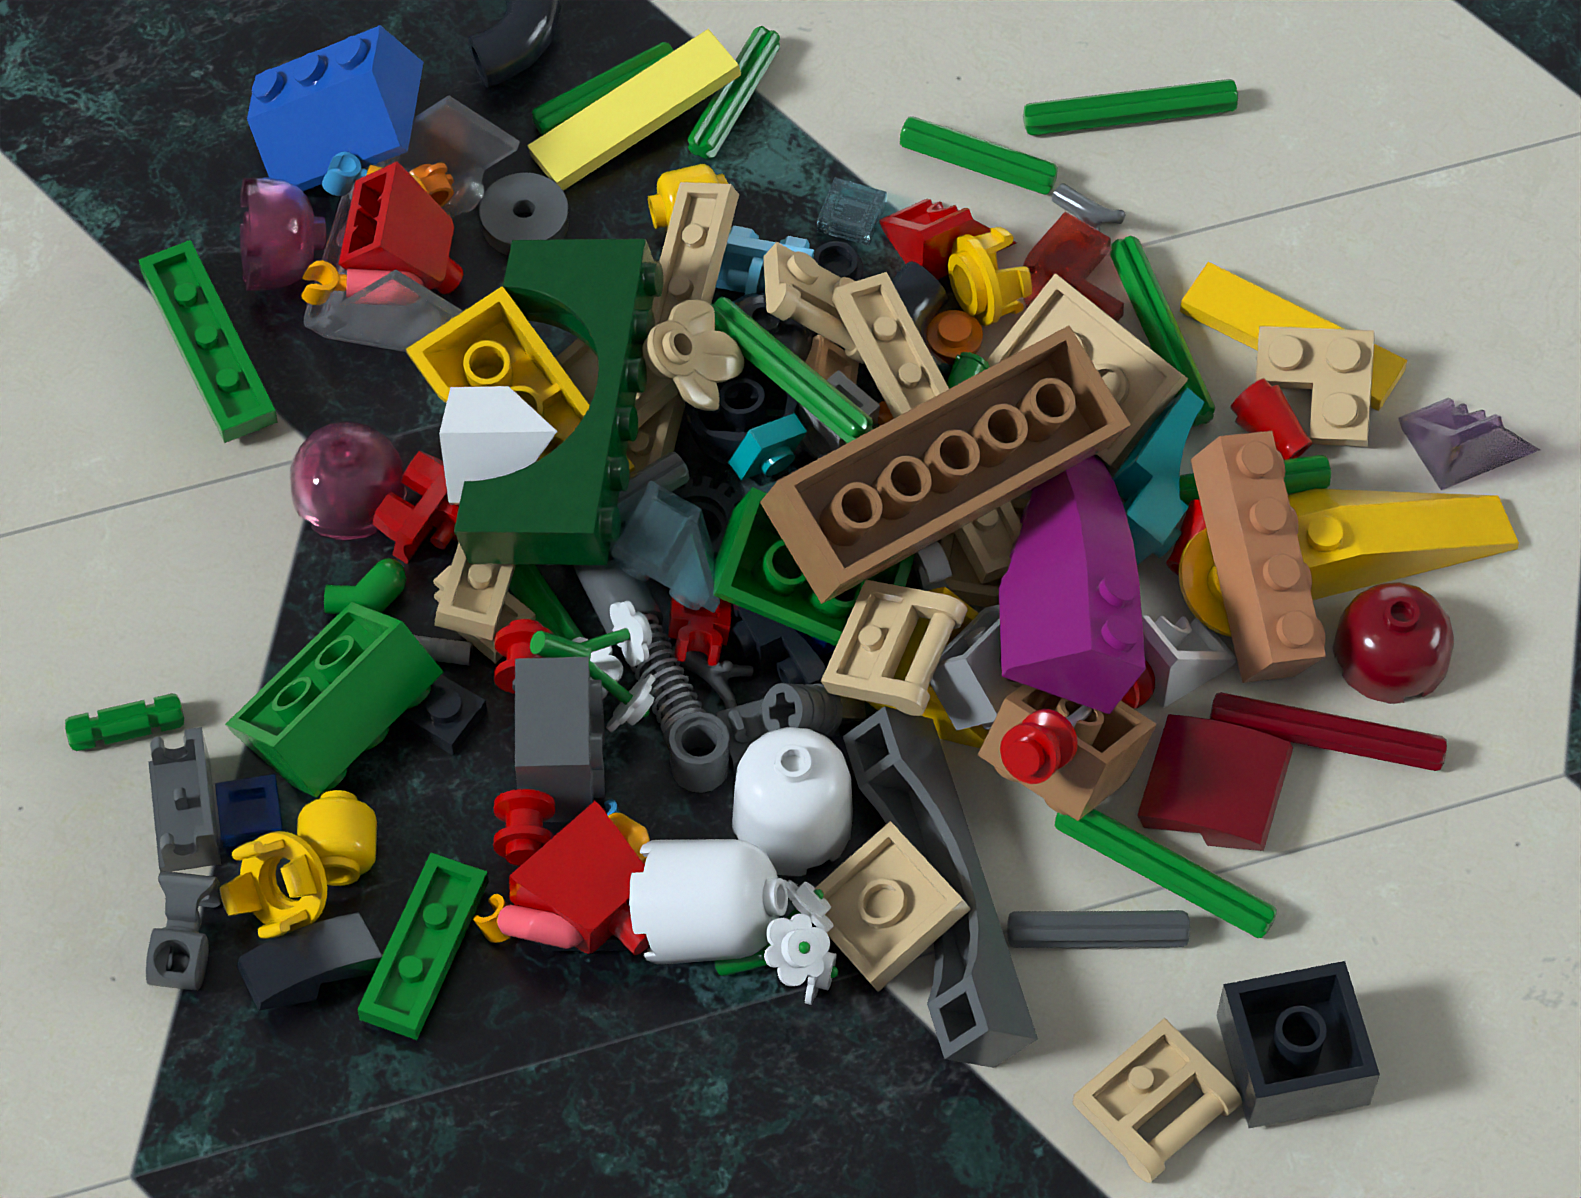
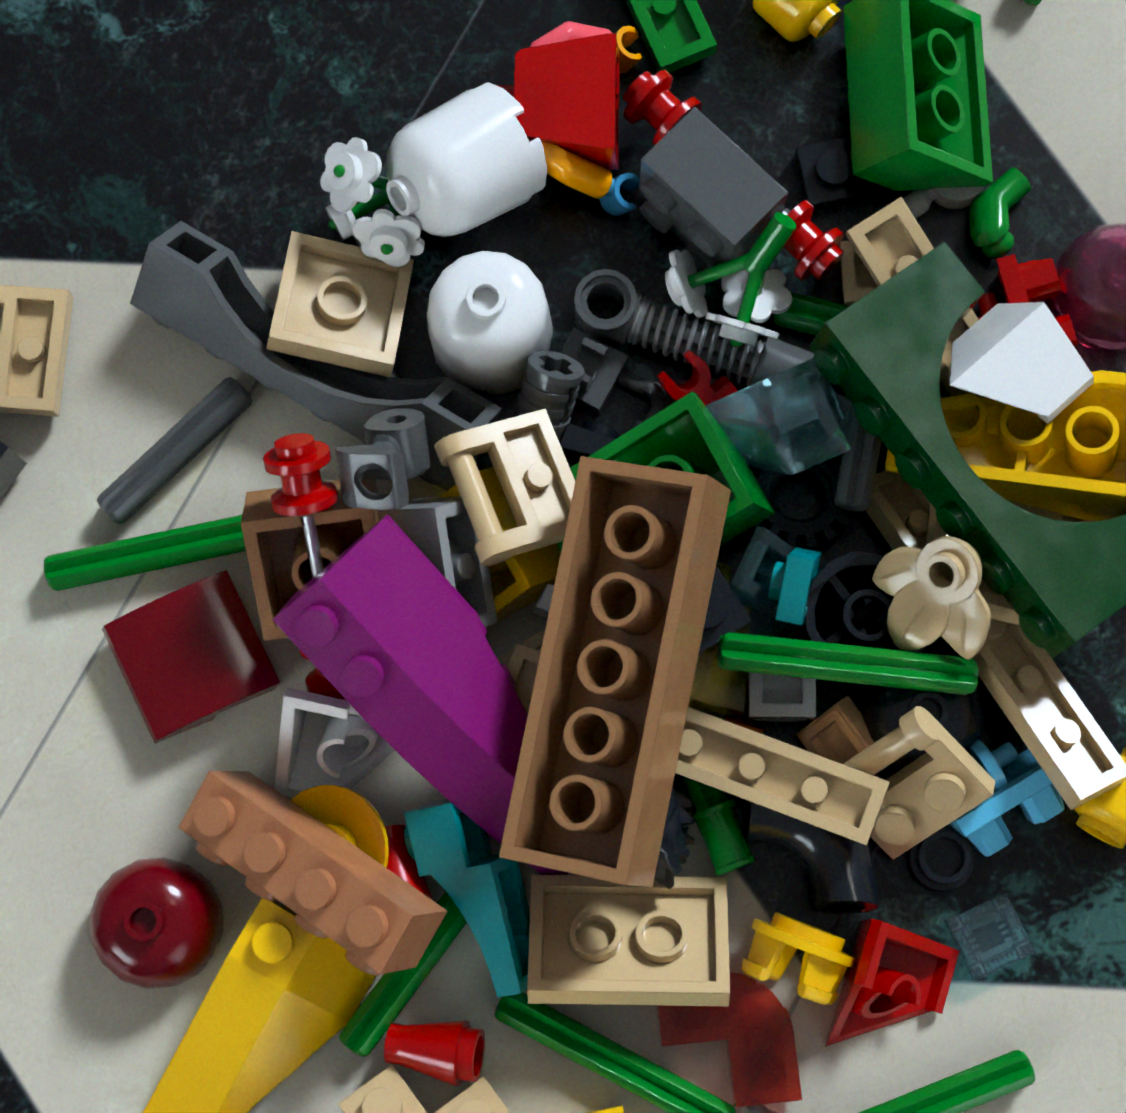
camera: 140 degrees right, 20 degrees up
(954, 333) = (779, 884): orange plate -> none
(959, 740) = (393, 451): none -> dark grey leg
(1332, 731) = (141, 789): dark red axle -> none

